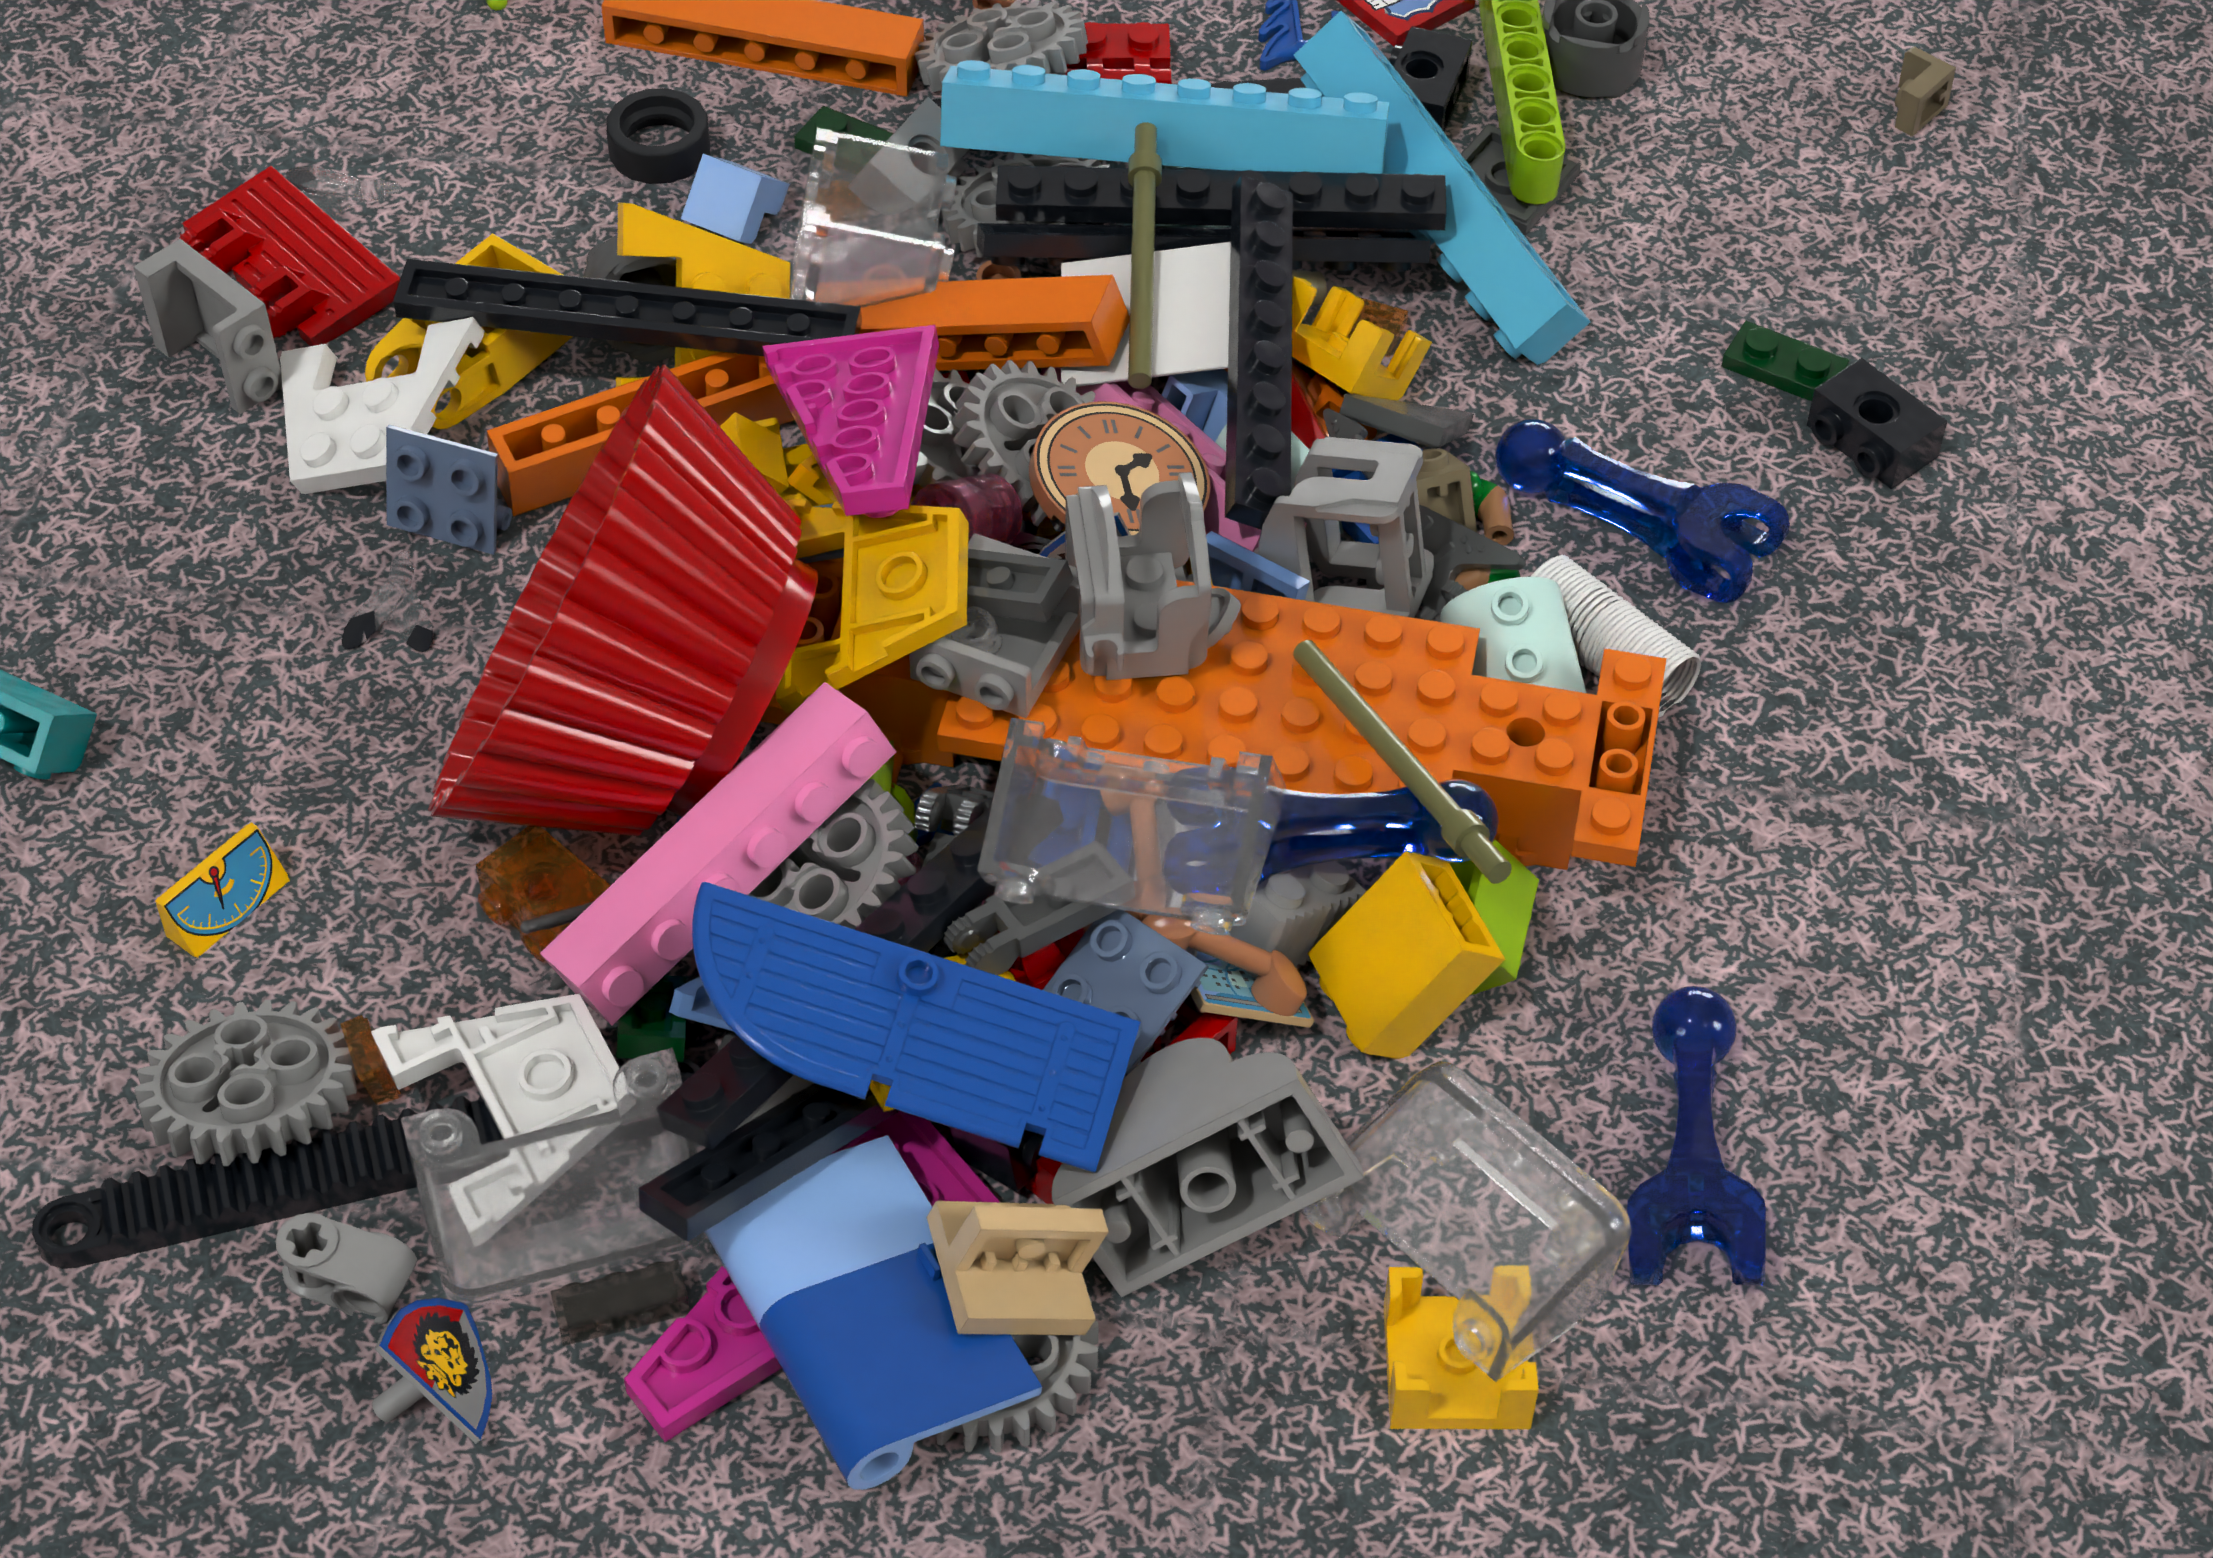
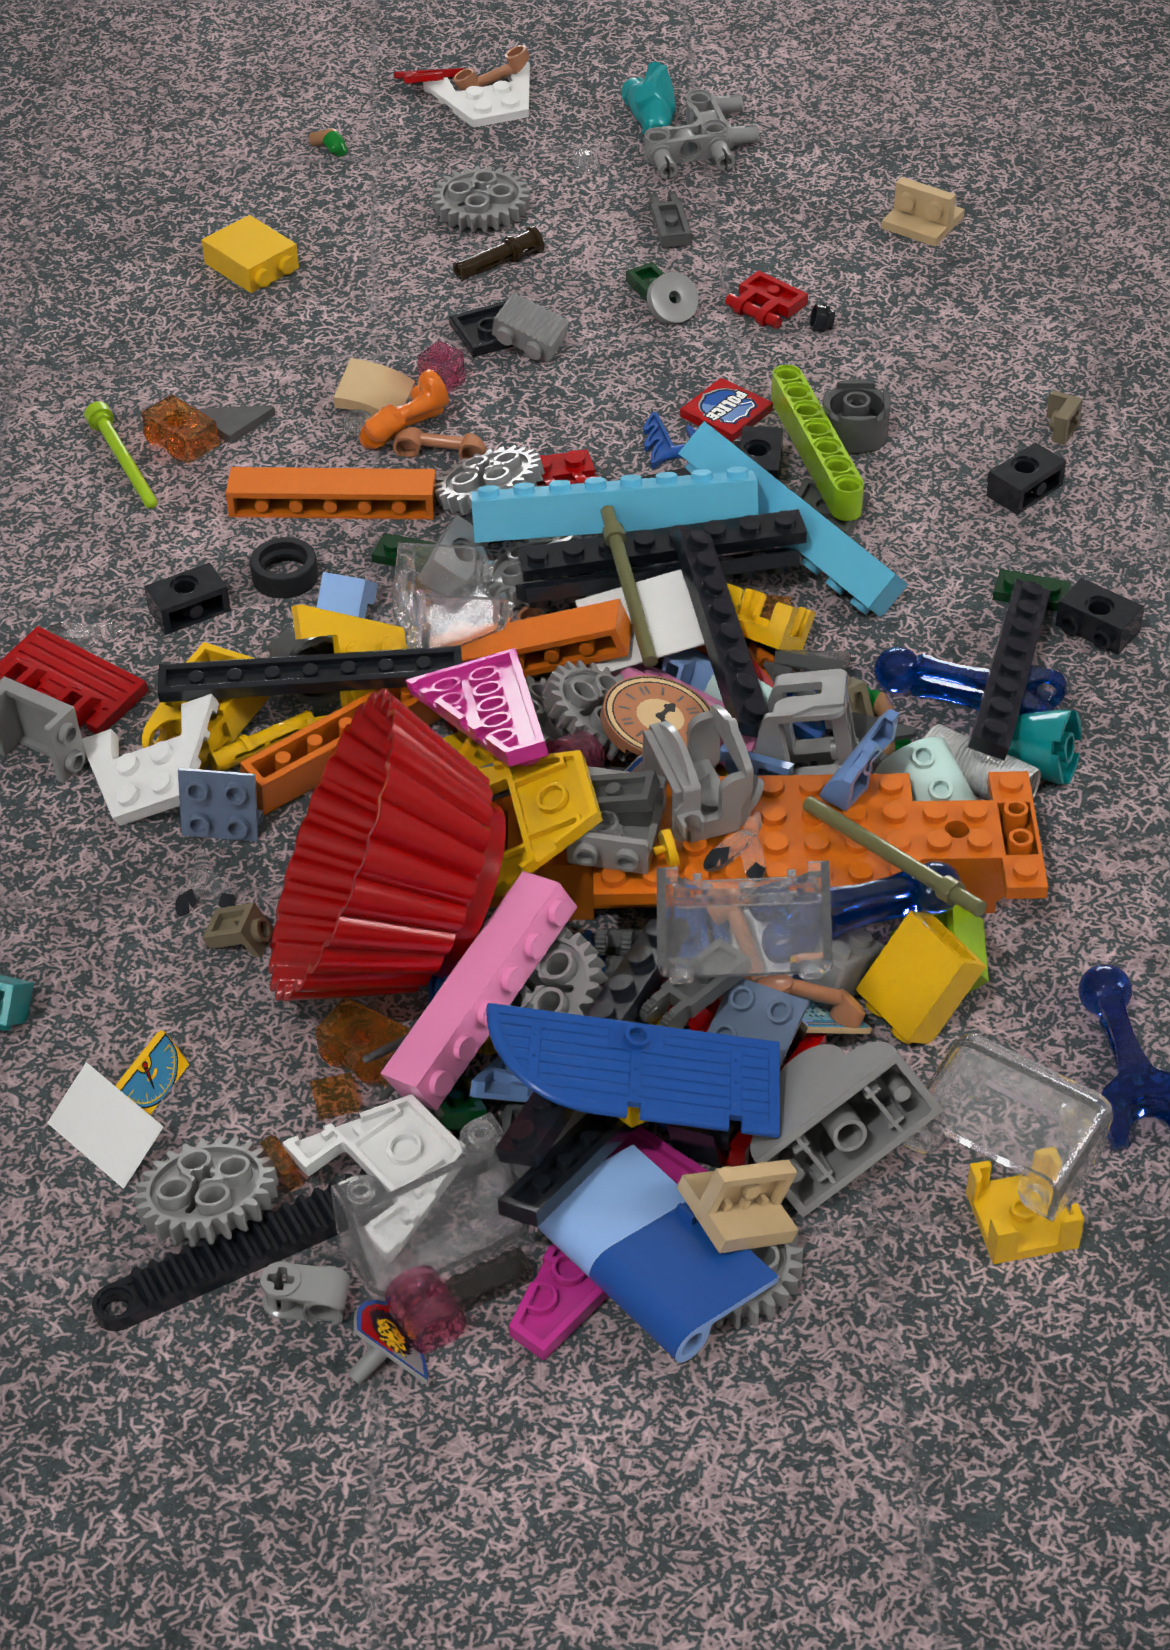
camera: 10 degrees left, 5 degrees down
(134, 952) = (105, 1125): none -> white sticker
(422, 682) = (237, 926): none -> dark tan bracket
(484, 970) = (335, 1096): none -> clear orange tile
(501, 160) = (187, 598): none -> black brick
(508, 1327) = (425, 1308): none -> clear pink wheel
(516, 404) = (246, 746): none -> yellow pin
(1063, 683) = (667, 847): none -> yellow piece
(1184, 696) = (740, 843): none -> clear piece
(1385, 617) = (854, 774): none -> medium blue slope
(1697, 488) = (1009, 670): none -> black plate
(1711, 609) = (1048, 743): none -> teal cone
(1830, 181) = (1025, 478): none -> black brick

